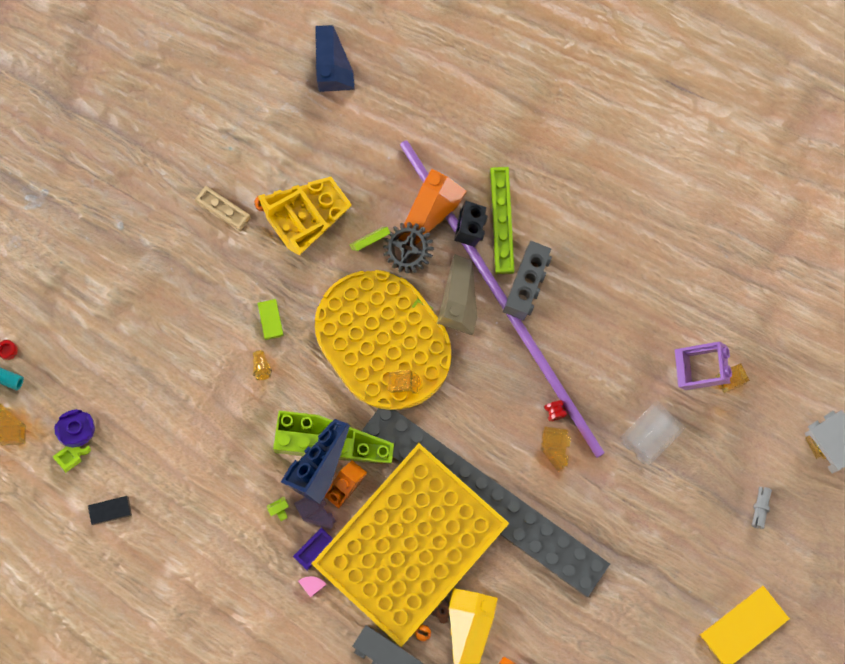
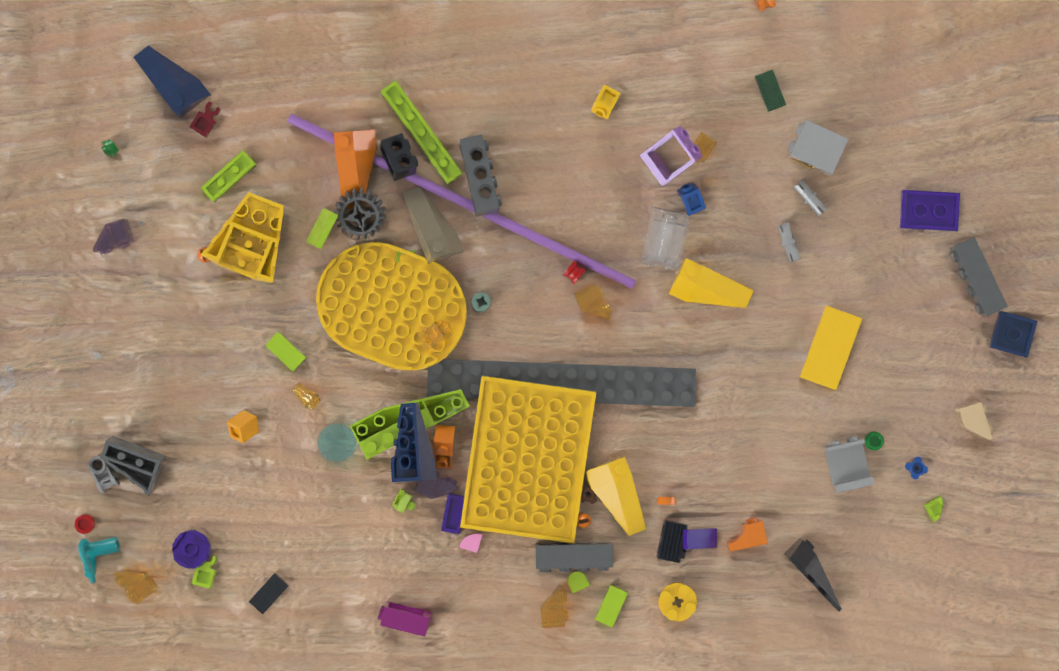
camera: 35 degrees left, 15 degrees up
(51, 321) = (103, 475): none -> light grey piece
(83, 325) = (134, 462): none -> dark grey wedge
(191, 355) = (243, 426): none -> light orange panel
(201, 142) = (114, 235): none -> clear purple slope
(207, 611) = (404, 618): none -> magenta window
(222, 208) = (174, 282): tan tile -> none
(247, 77) = (109, 148): none -> green plate
(258, 421) = (336, 442): none -> clear light blue tile
(324, 156) = (228, 176): none -> lime tile
(334, 104) = (203, 122): none -> dark red plate
(456, 387) = (478, 304): none -> sand green wheel
(664, 497) = (706, 286): none -> yellow wedge
(671, 290) = (605, 102): none -> yellow bracket
(697, 415) = (691, 198): none -> blue bracket
(803, 481) = (810, 197): none -> light grey pin
(820, 370) = (770, 90): none -> clear green tile

